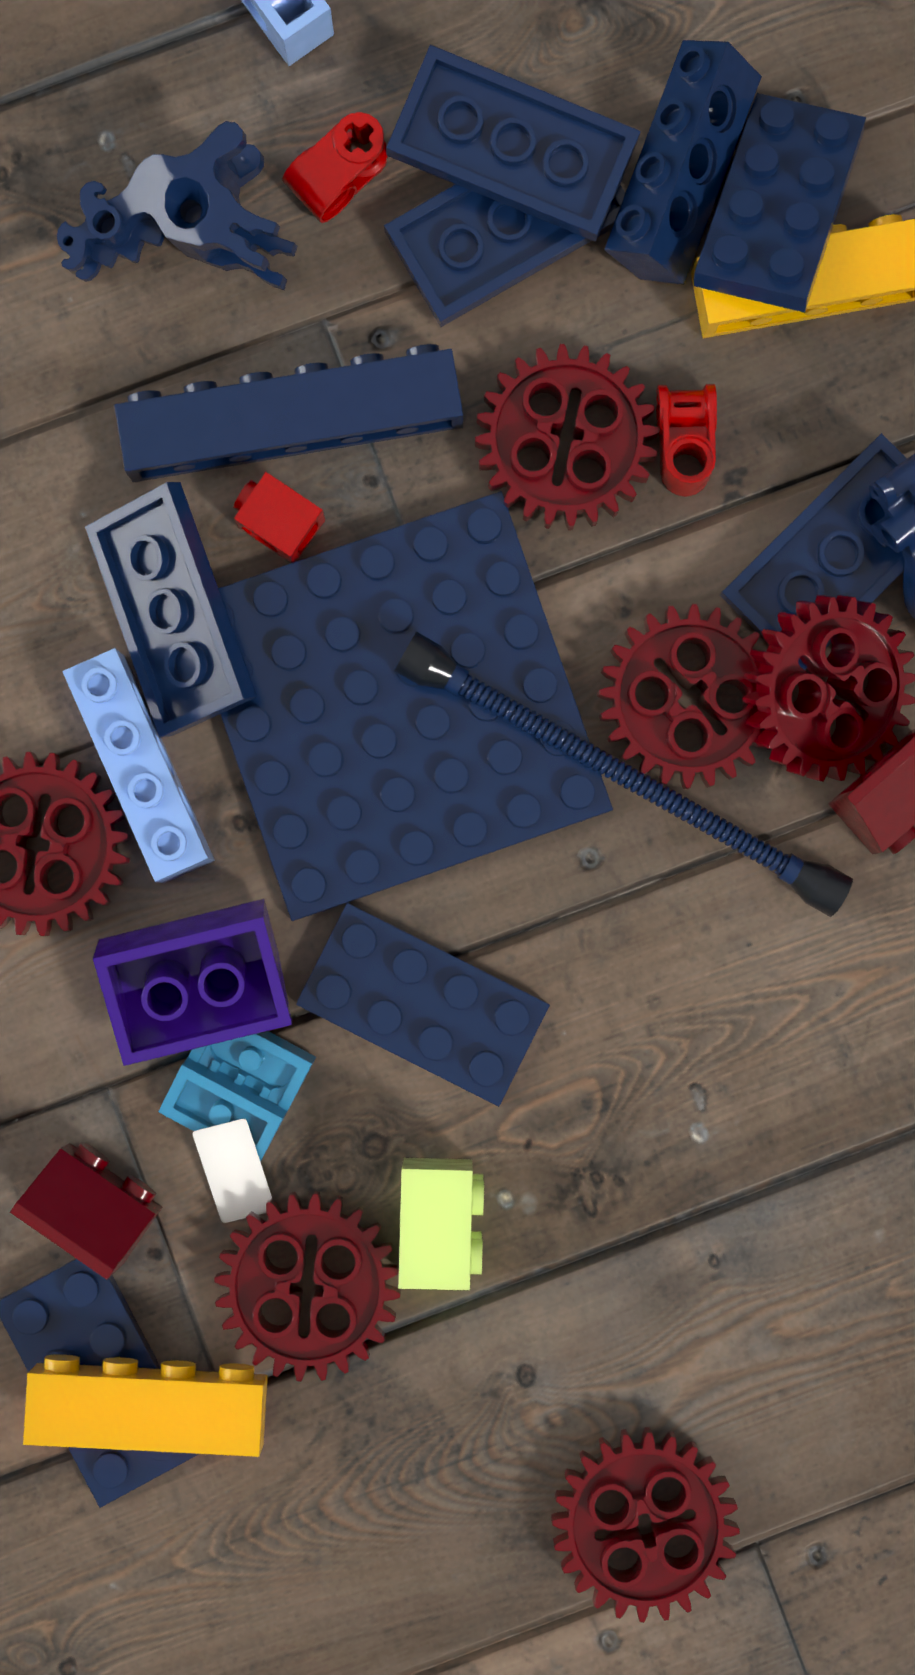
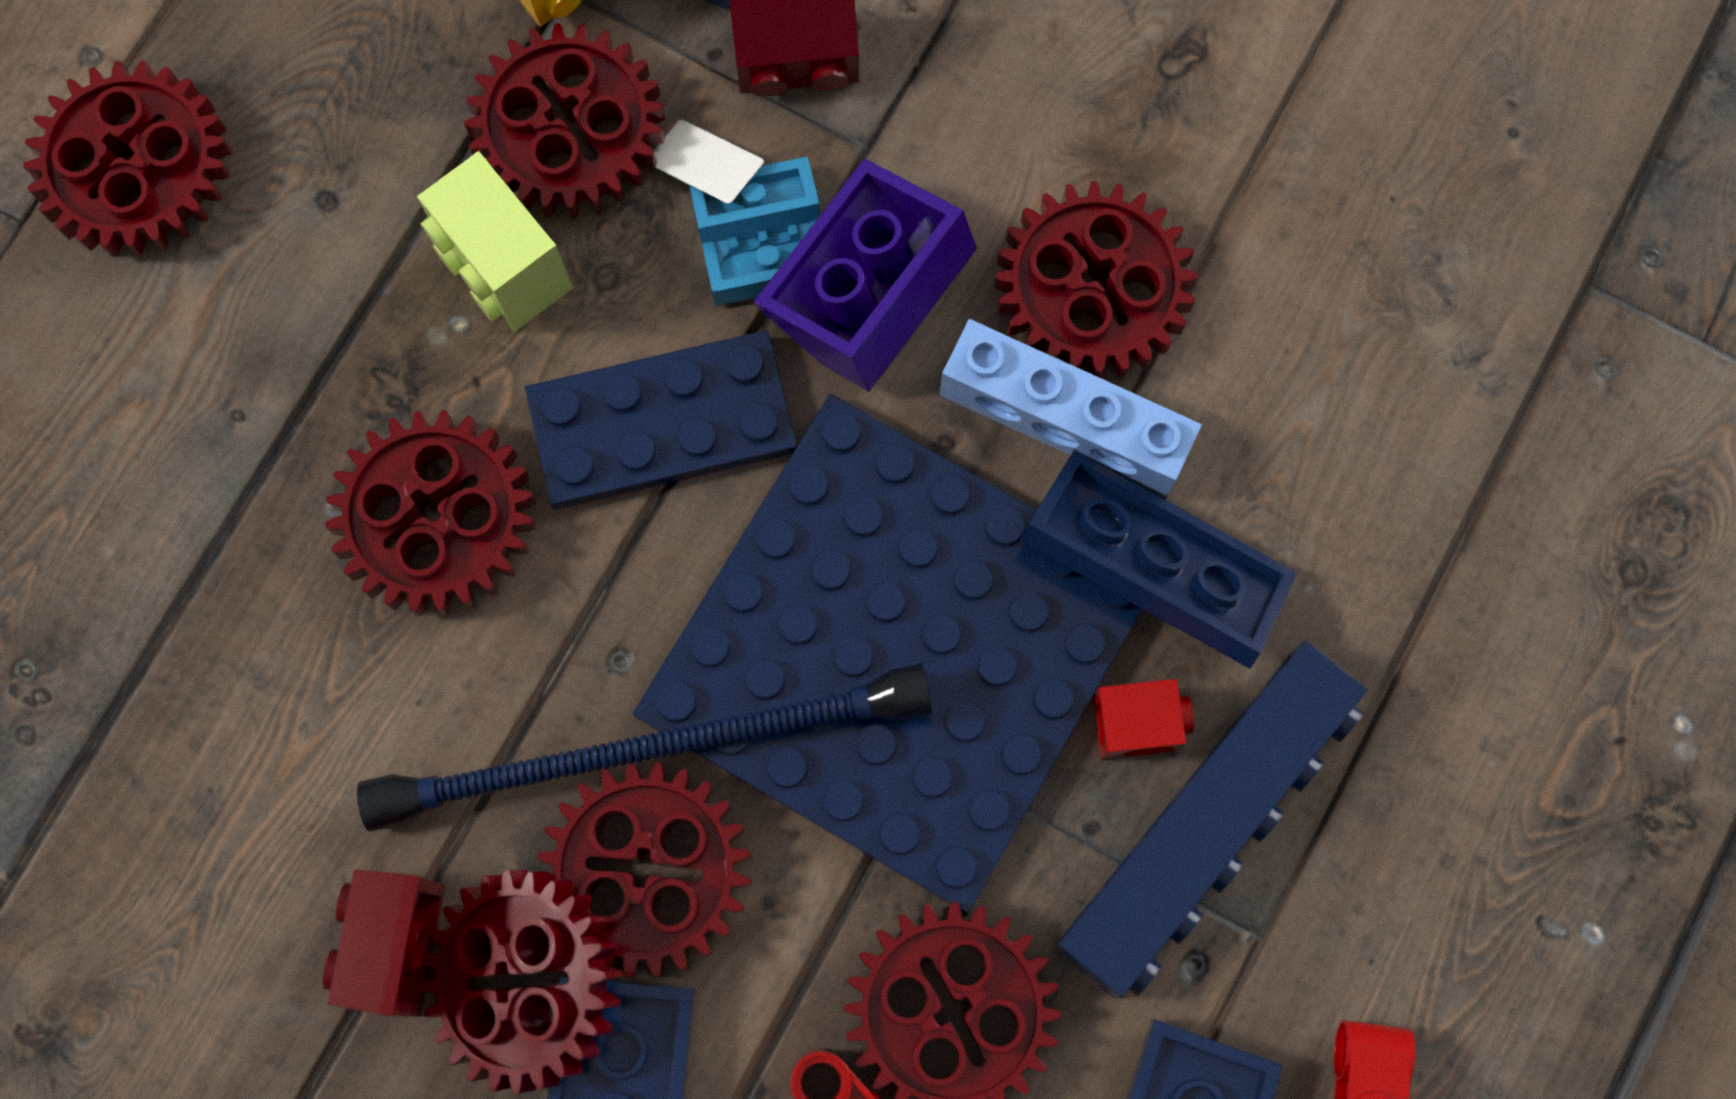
camera: 140 degrees right, 10 degrees down
(188, 202) = (1468, 919): dark blue animal -> none
(634, 1119) = (464, 556): none -> dark red gear

